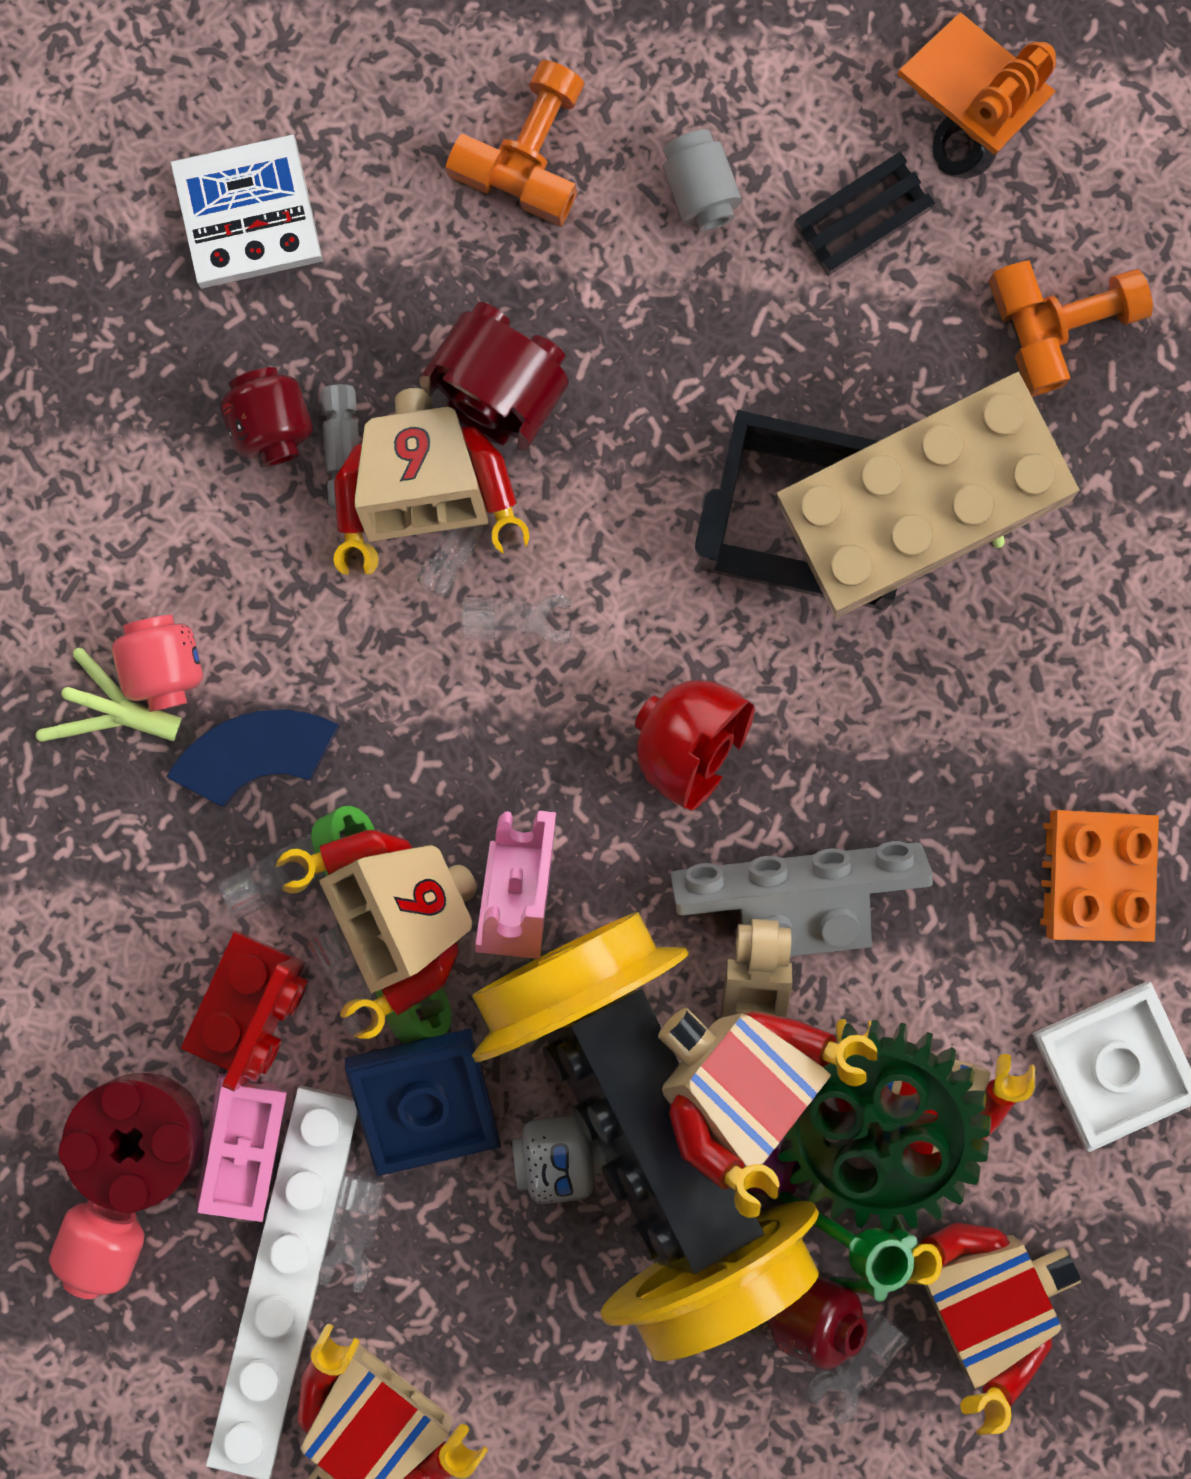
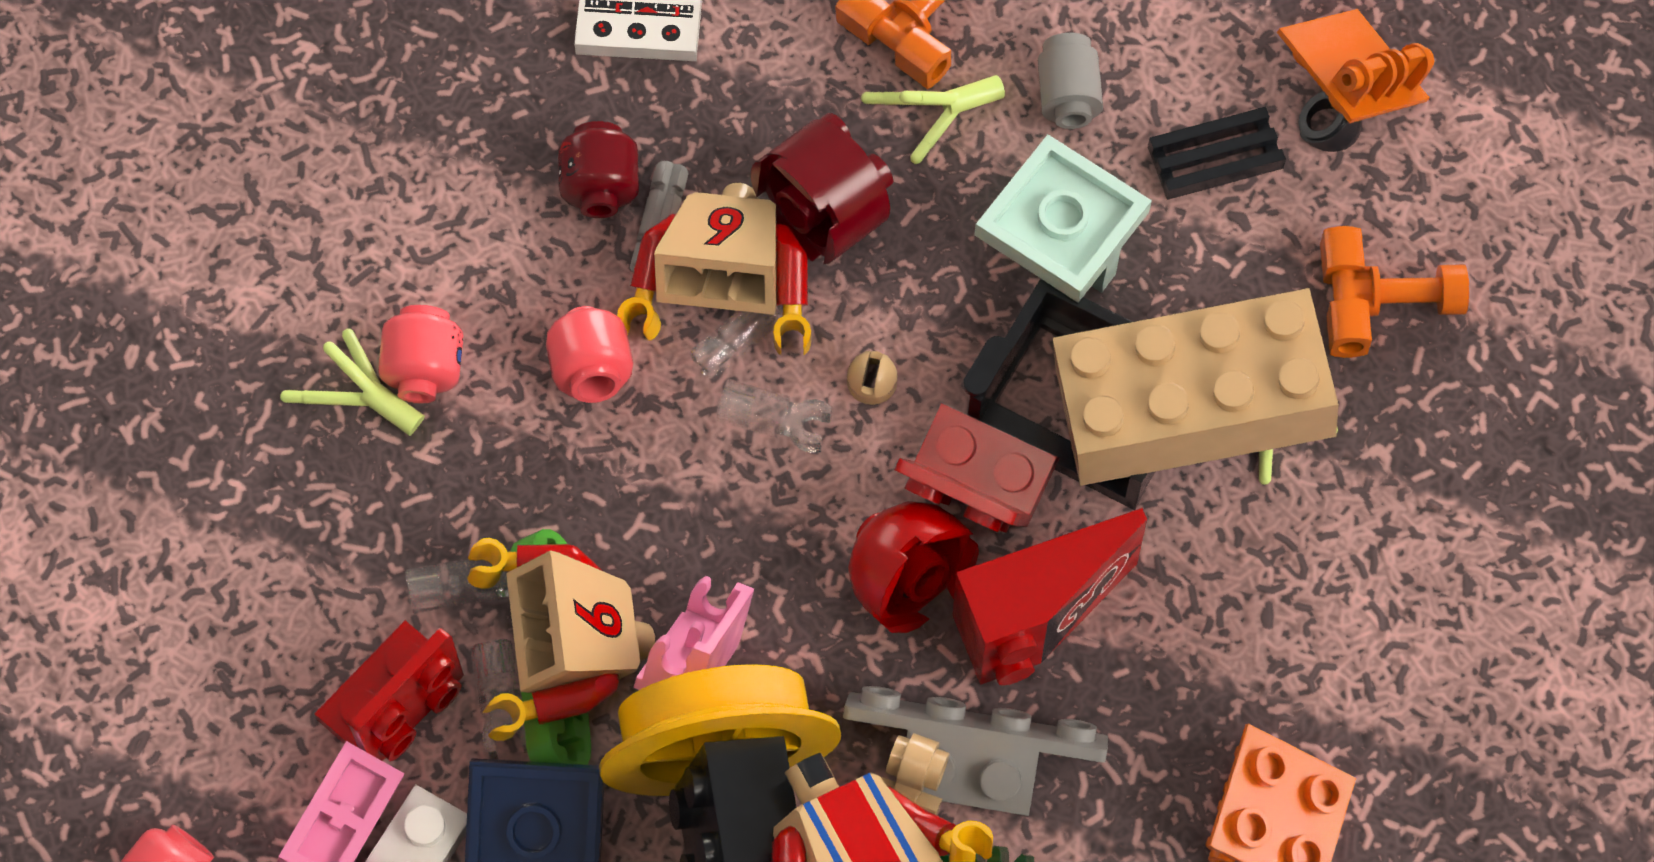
camera: 20 degrees right, 20 degrees down
(97, 1134) = (231, 745): dark red brick -> none
(253, 748) = (482, 461): dark blue tile -> none
(320, 612) = (589, 354): none -> coral head
(568, 241) = (952, 101): none -> yellowish green plant
(611, 547) = (885, 378): none -> tan hinge
(731, 631) = (980, 467): none -> red bracket
(742, 343) = (1064, 219): none -> light aqua bracket
(827, 752) = (1030, 600): none -> red slope

